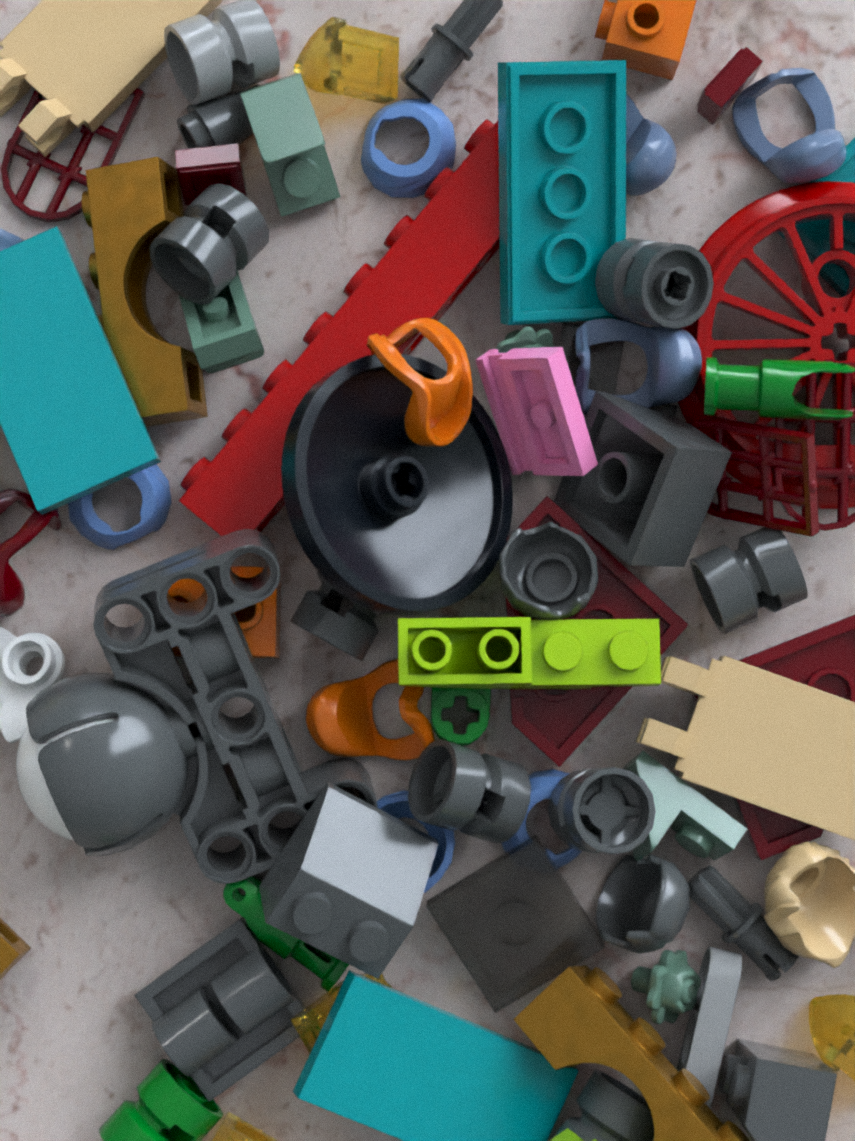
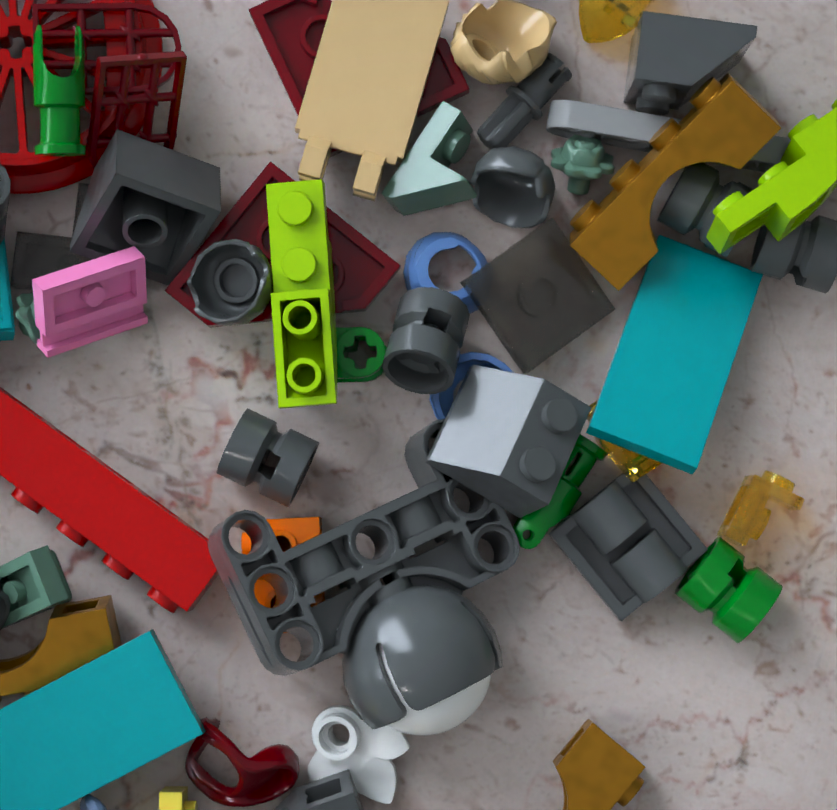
camera: 95 degrees left, 0 degrees up
(153, 512) = (199, 636): medium blue piece -> none
(344, 724) = (373, 456): orange piece -> none
(386, 516) = (161, 417): black dish -> none
(439, 406) = (89, 385): orange piece -> none
(602, 810) = (430, 212): dark grey wheel -> none
(671, 357) = (35, 188): sand blue piece -> none
(749, 578) = (228, 115): dark grey wheel -> none

